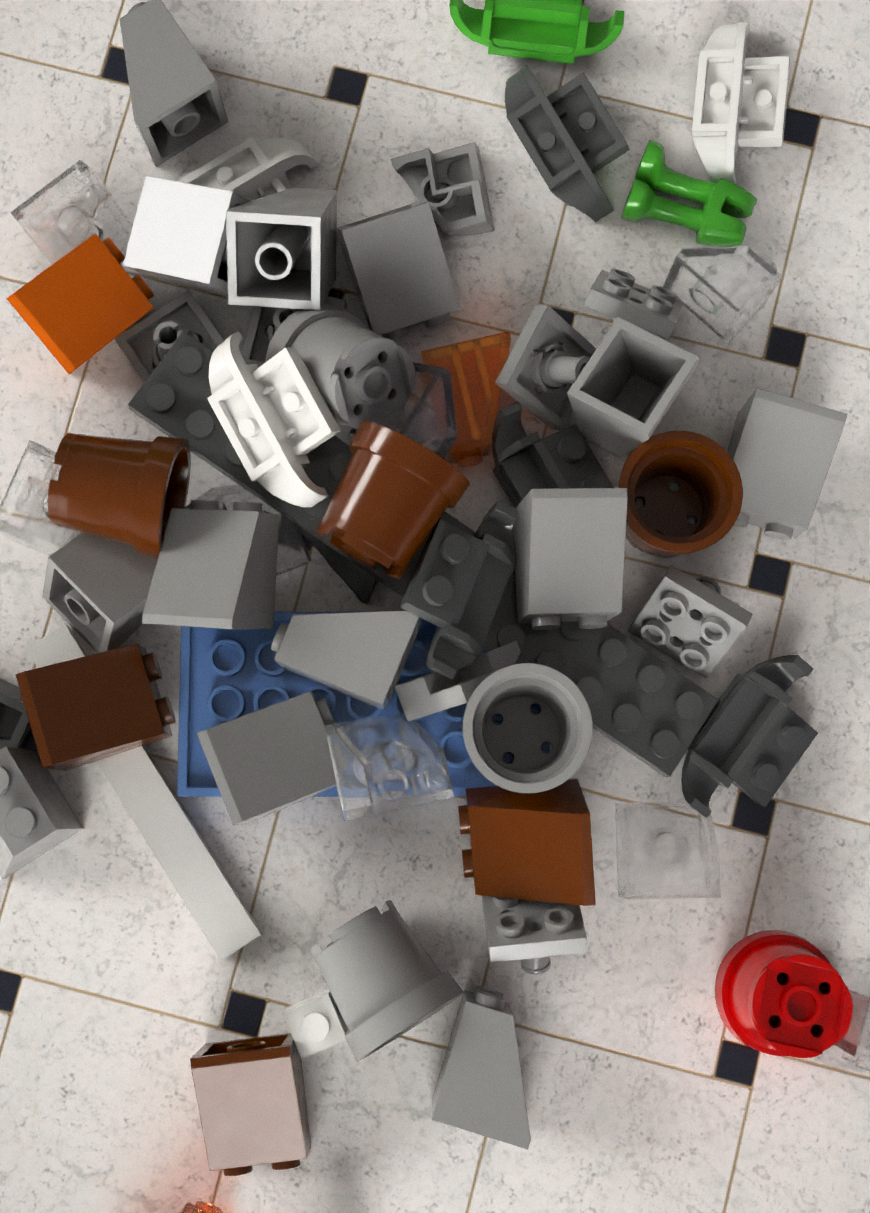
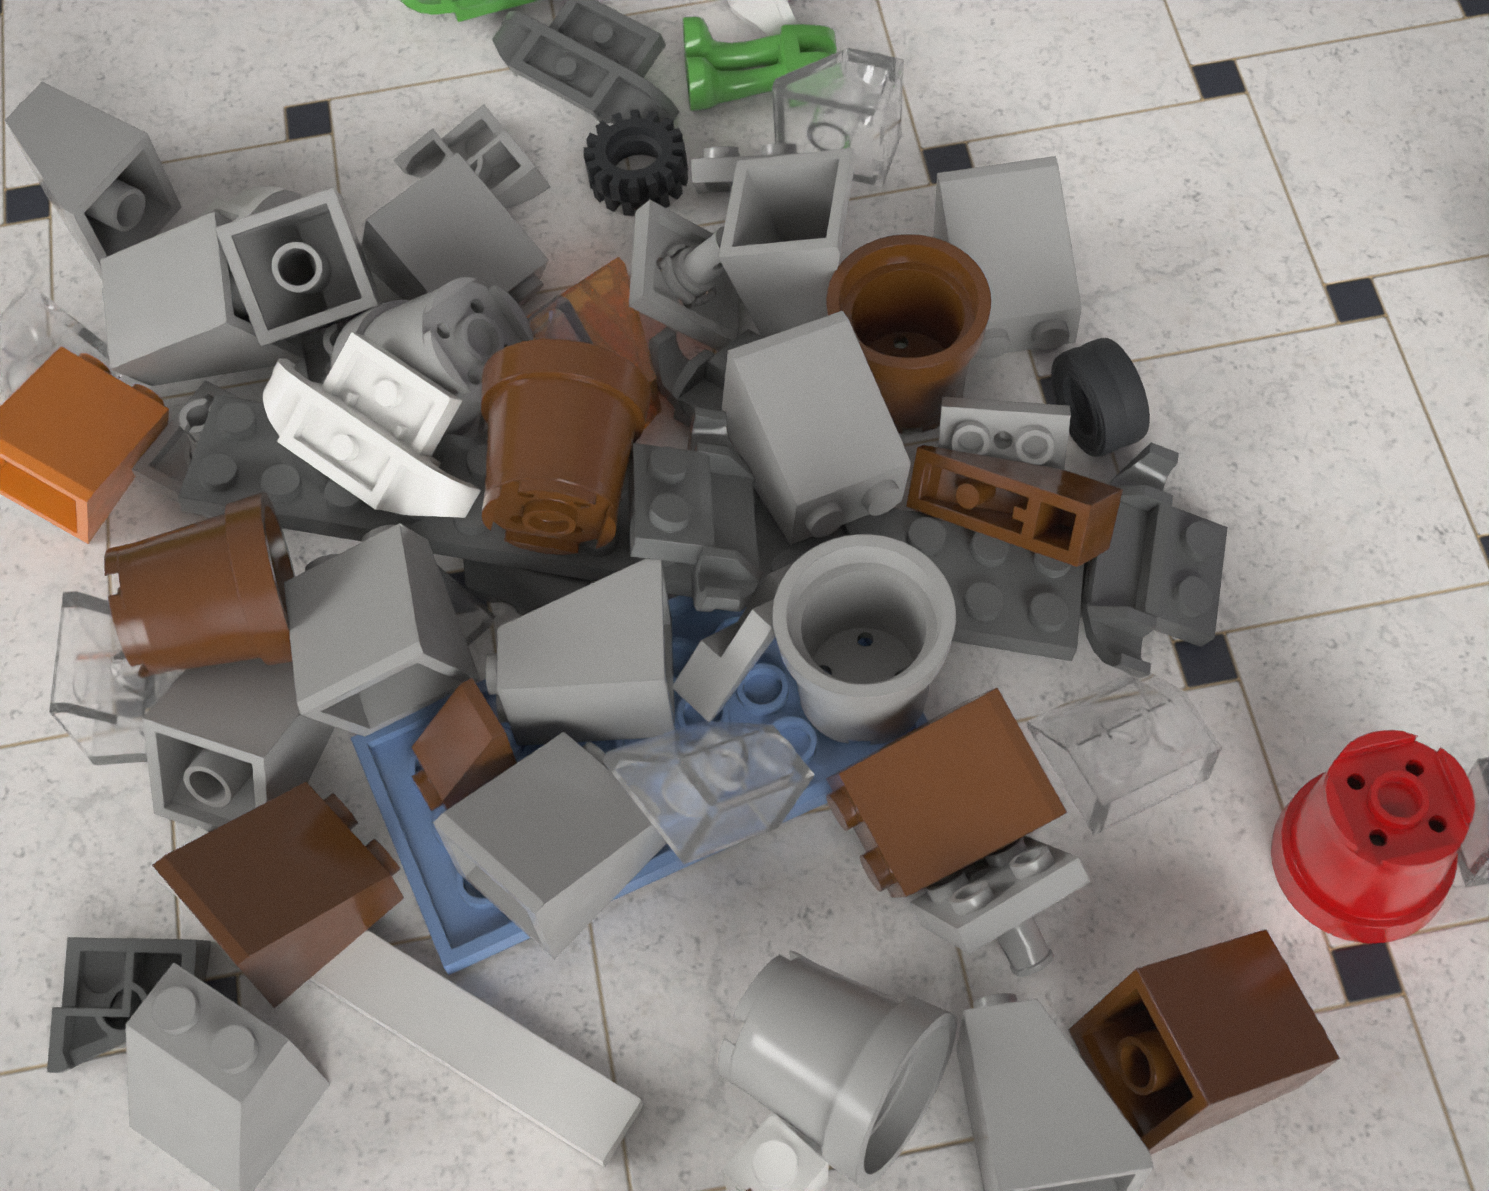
camera: 20 degrees left, 20 degrees down
(241, 676) = (461, 749): none -> reddish brown slope
(569, 221) = (633, 138): none -> black tyre
(609, 1068) = (1202, 1039): none -> reddish brown slope
(684, 665) = (1016, 502): none -> reddish brown slope
(783, 603) = (1103, 396): none -> black tyre

